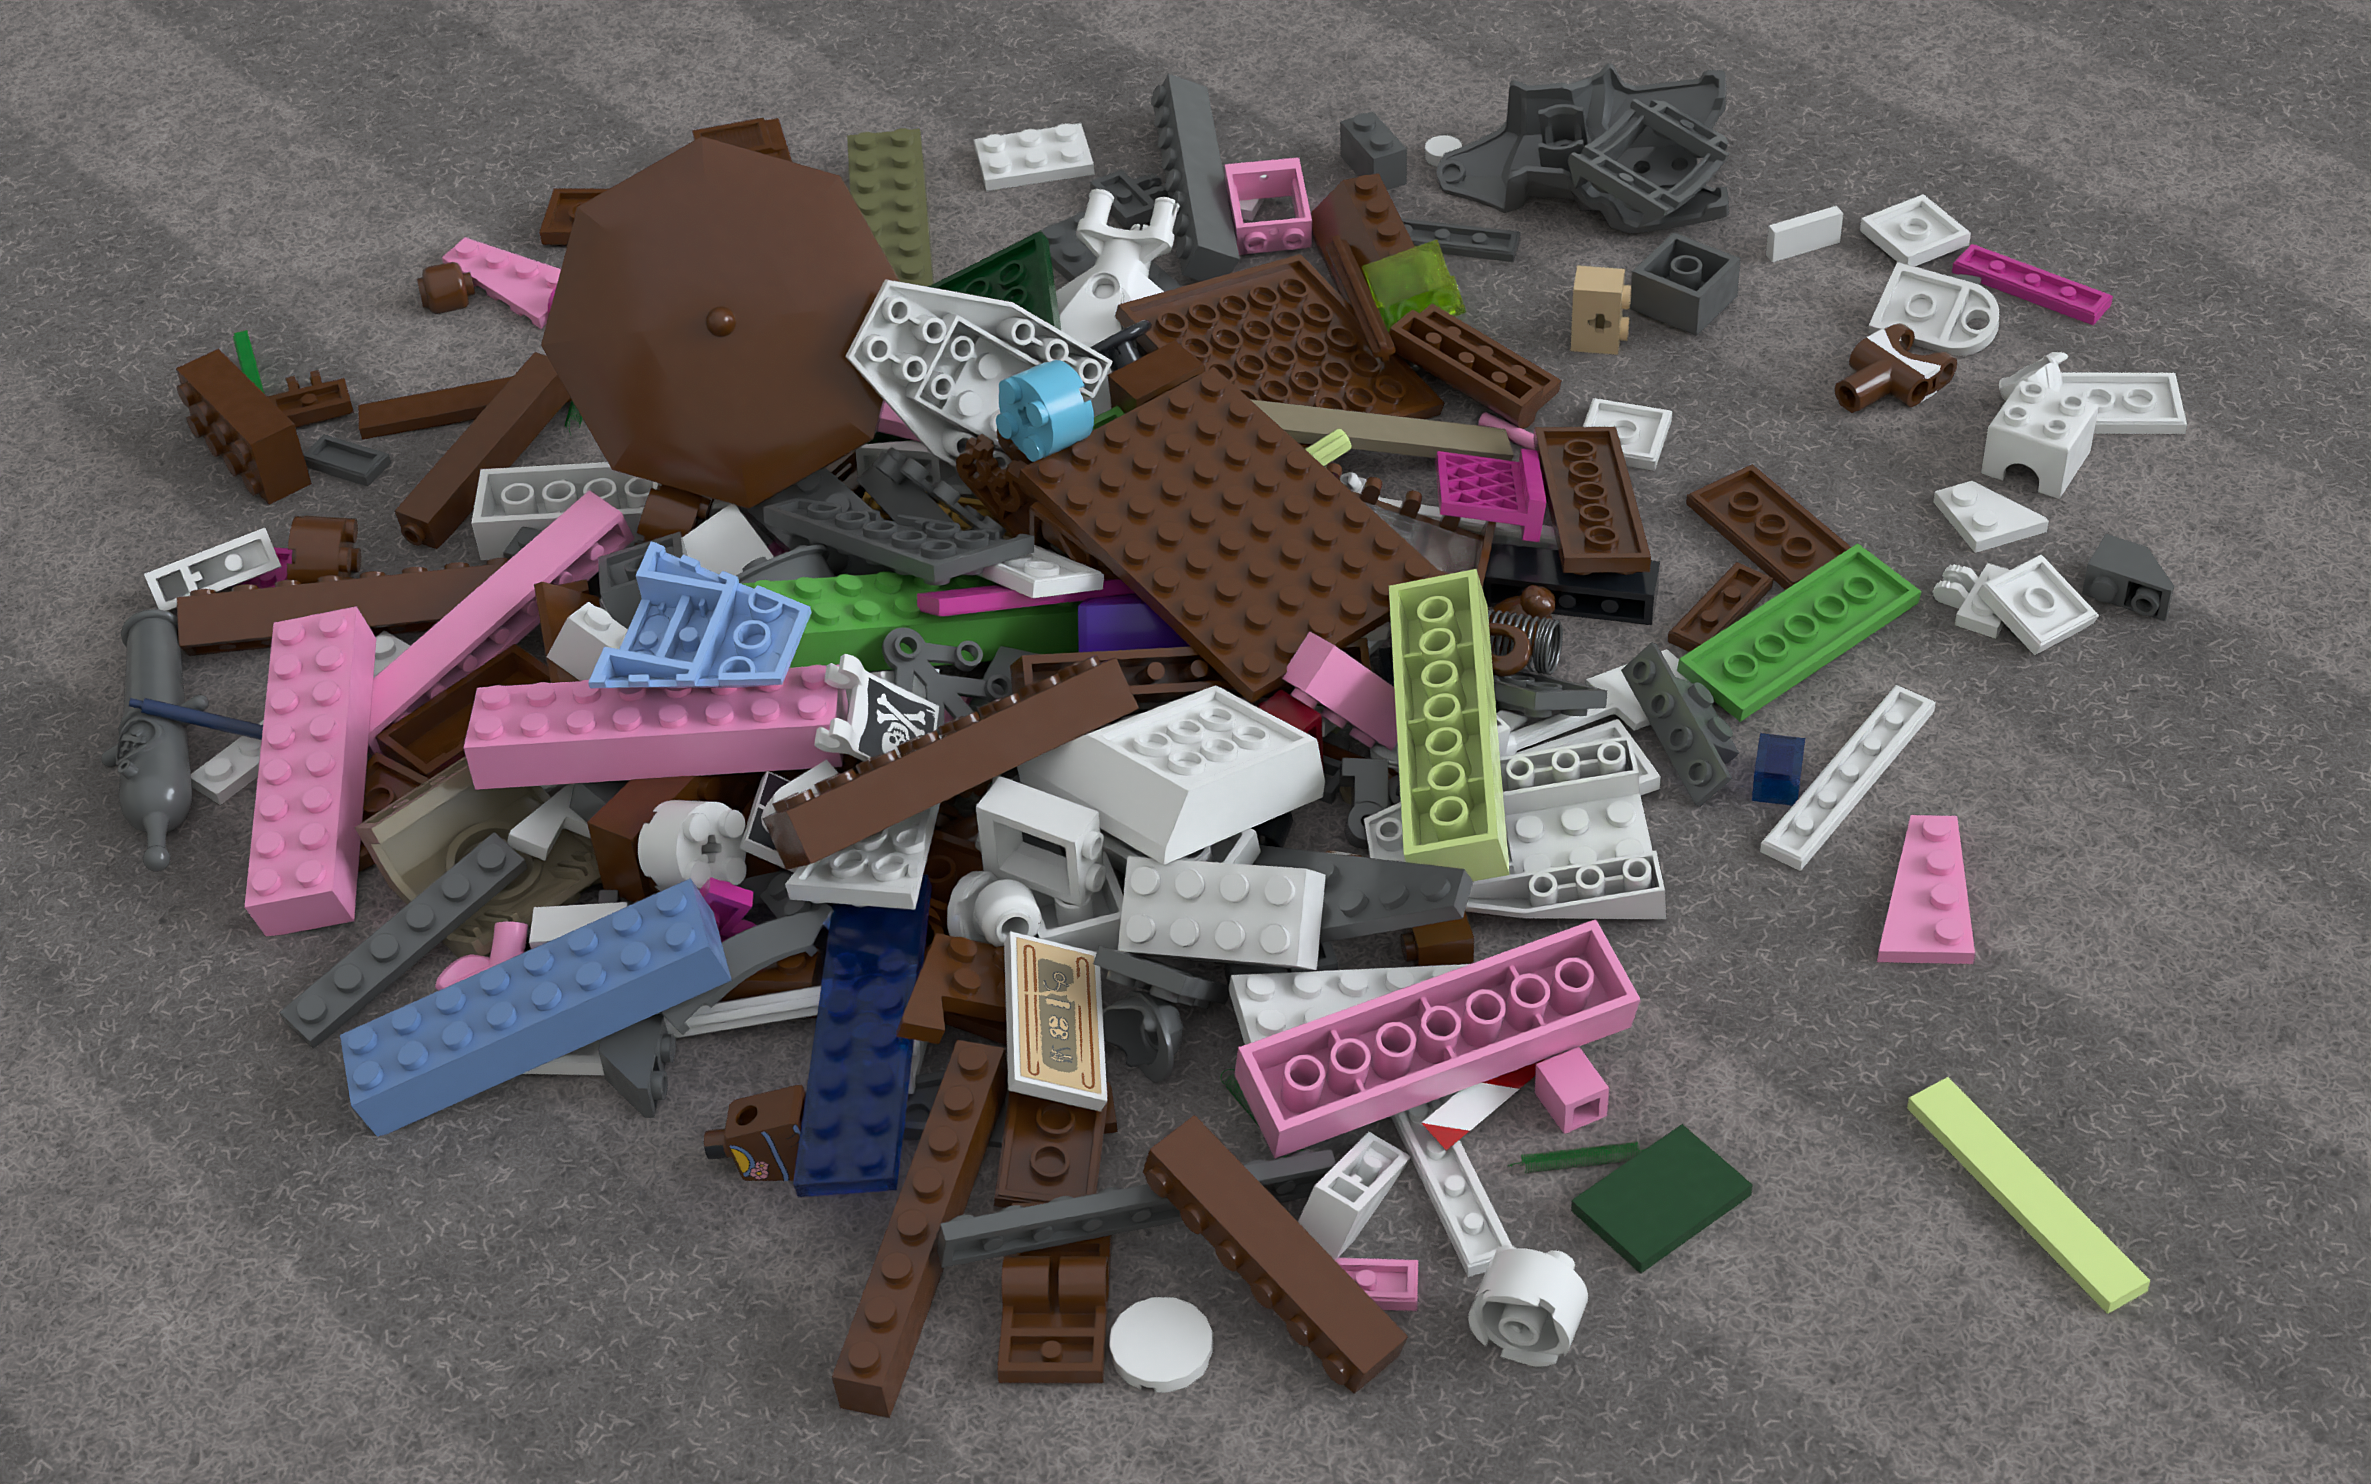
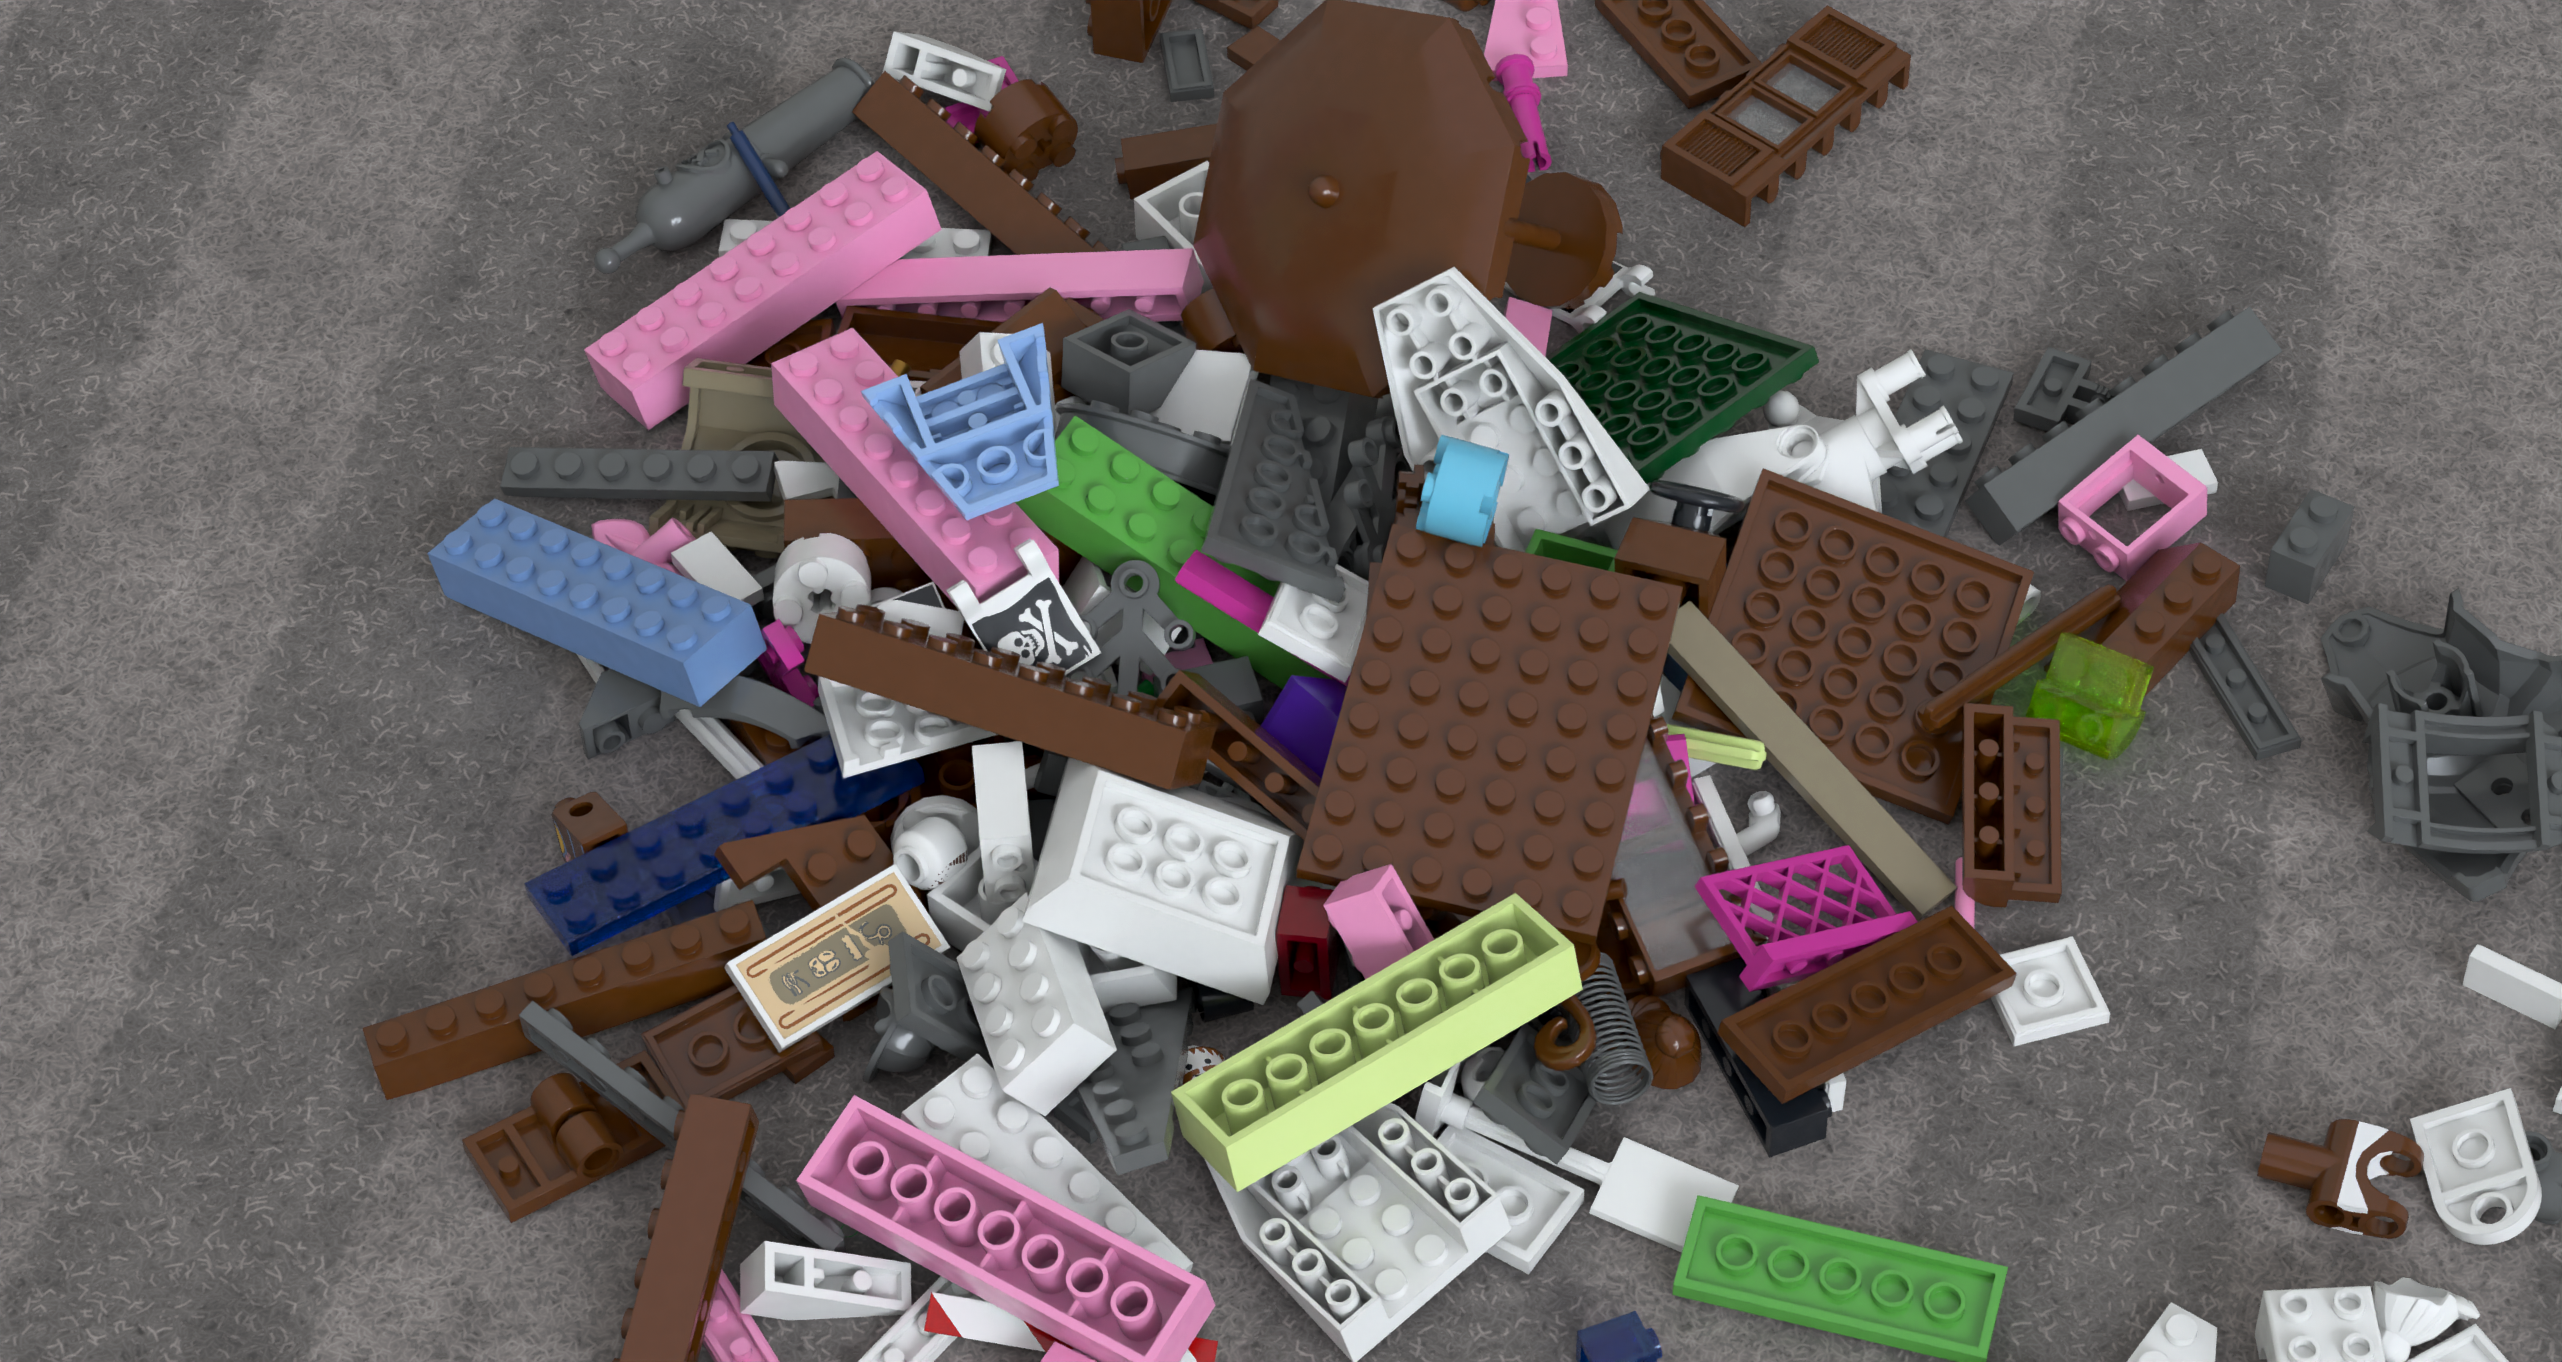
camera: 55 degrees right, 5 degrees up
(892, 195) = (1835, 234): olive brick -> none
(1033, 156) = (2063, 282): white plate -> none
(1161, 1344) = (577, 1240): white tile -> none
(1438, 146) = (2388, 598): white tile -> none
(1439, 943) = (1177, 1196): reddish brown brick -> none
(1598, 309) = (2190, 865): tan brick -> none
(1684, 723) = (1620, 1250): dark grey bracket -> none
(1685, 283) = (2316, 920): dark grey brick -> none
(1721, 606) = (1838, 1200): reddish brown tile -> none
(1767, 525) = (1999, 1183): reddish brown tile -> none

